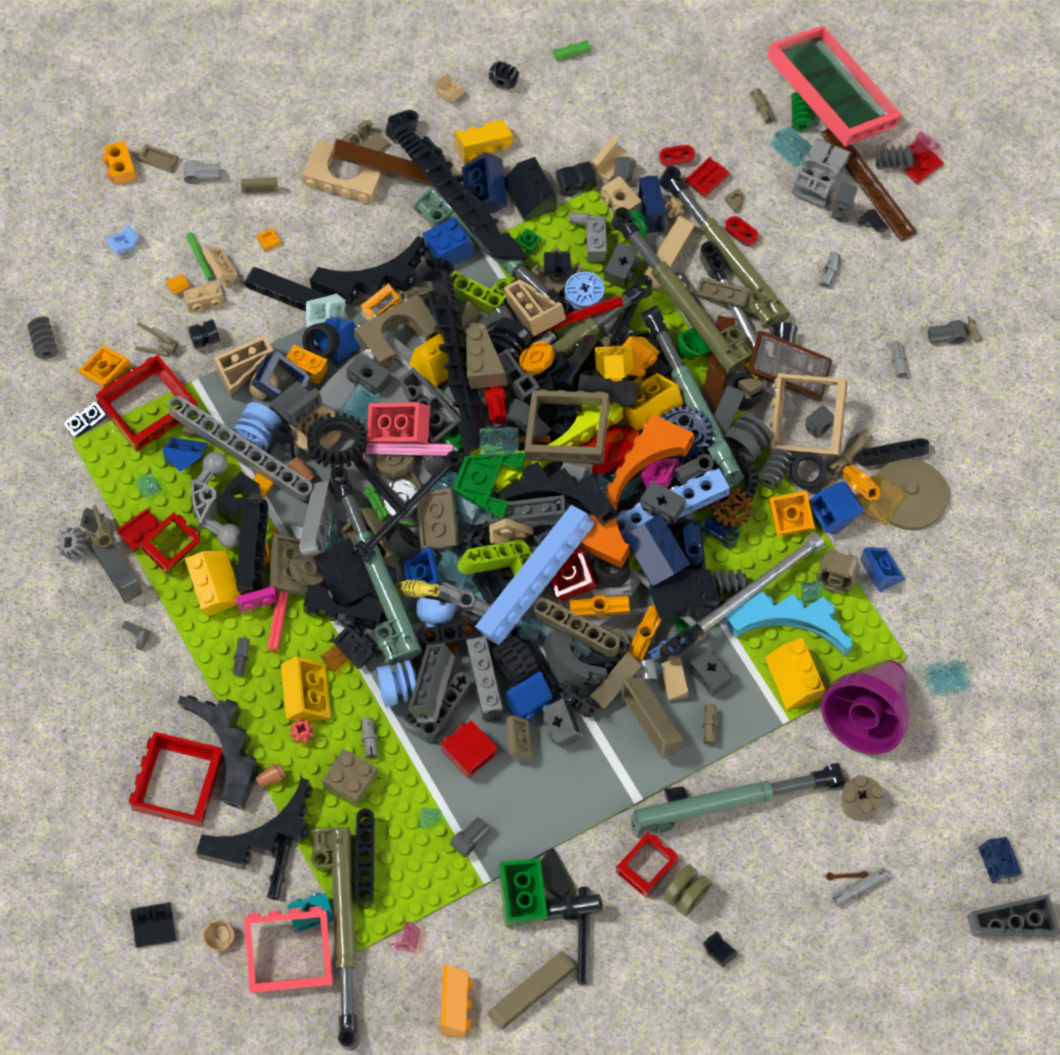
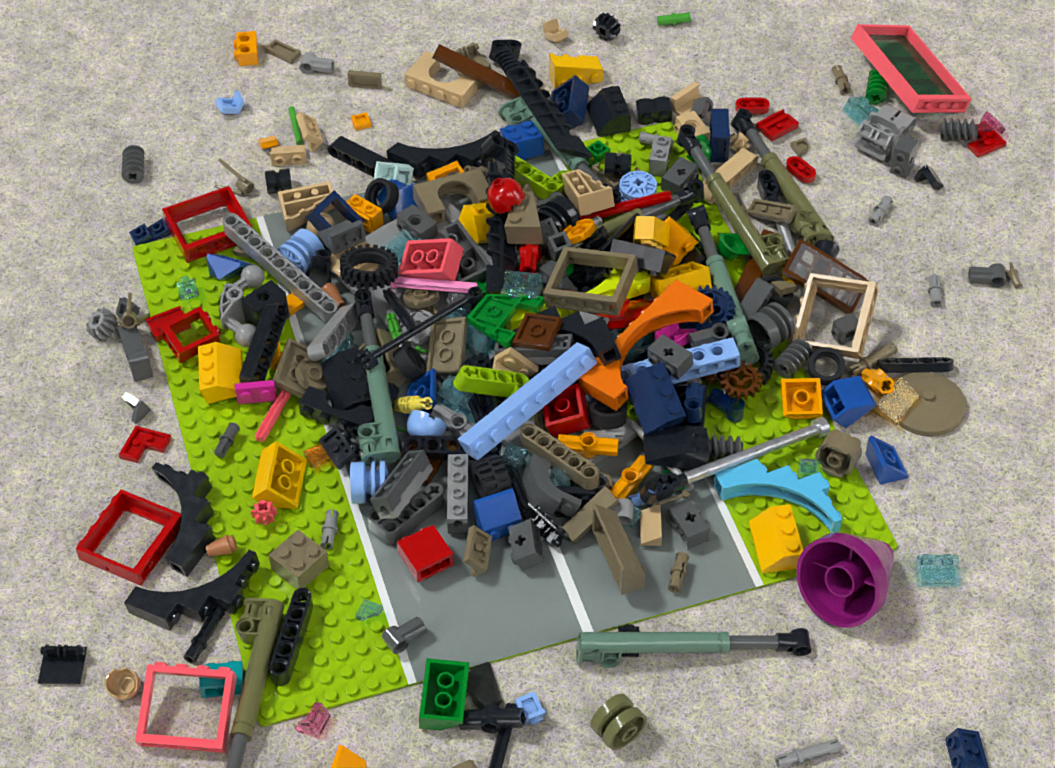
camera: 15 degrees right, 15 degrees down
(105, 367) = (180, 191): light orange slope -> none
(154, 666) = (143, 439): none -> red tile
(460, 339) = (504, 194): none -> red cylinder
(528, 497) = (537, 331): none -> reddish brown tile
(602, 886) = (532, 707): none -> light blue bracket
(634, 879) = (567, 707): red window -> none
(830, 876) = (777, 740): reddish brown hinge -> none
(870, 792) = (825, 667): dark tan brick -> none
(874, 189) = (936, 157): reddish brown tile -> none

